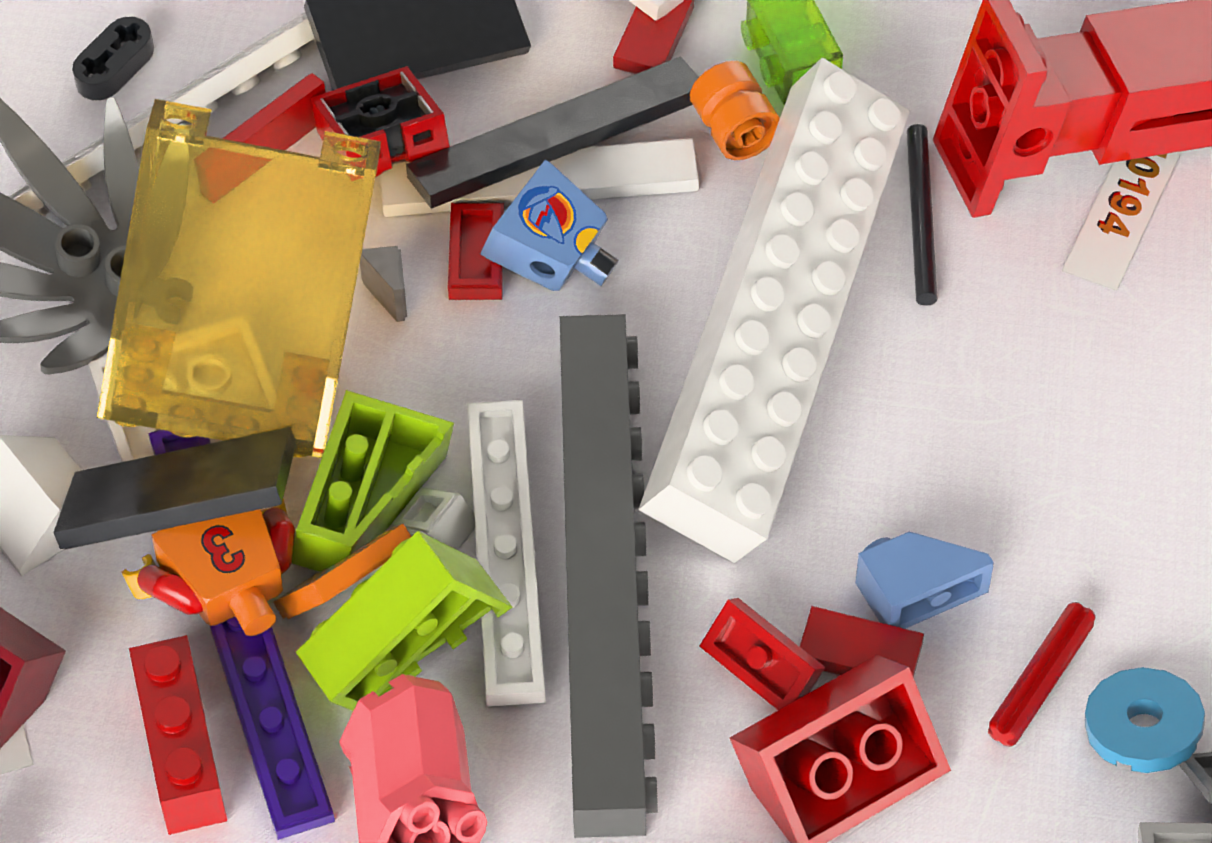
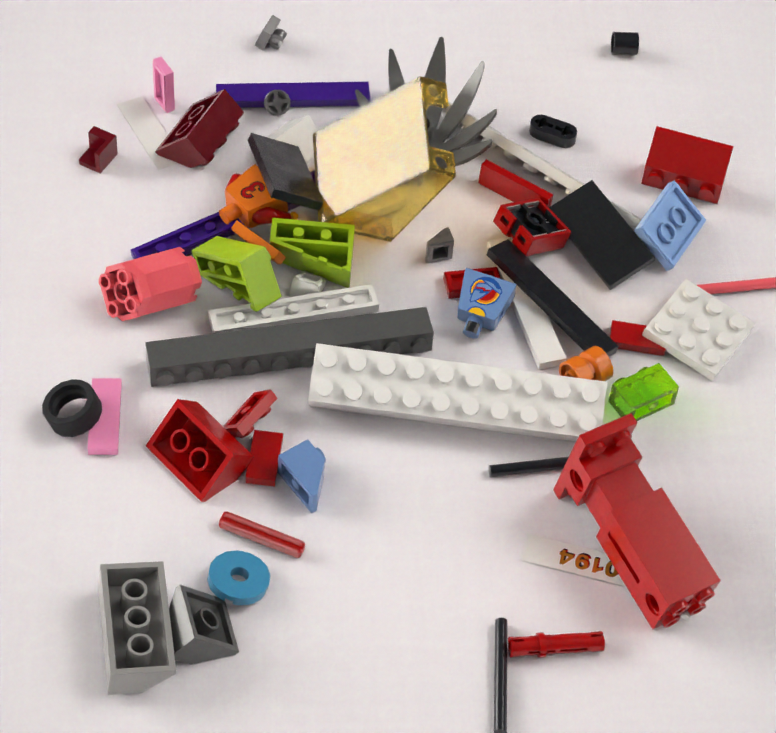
camera: 75 degrees right, 5 degrees down
(177, 735) = (152, 207): red arch -> none

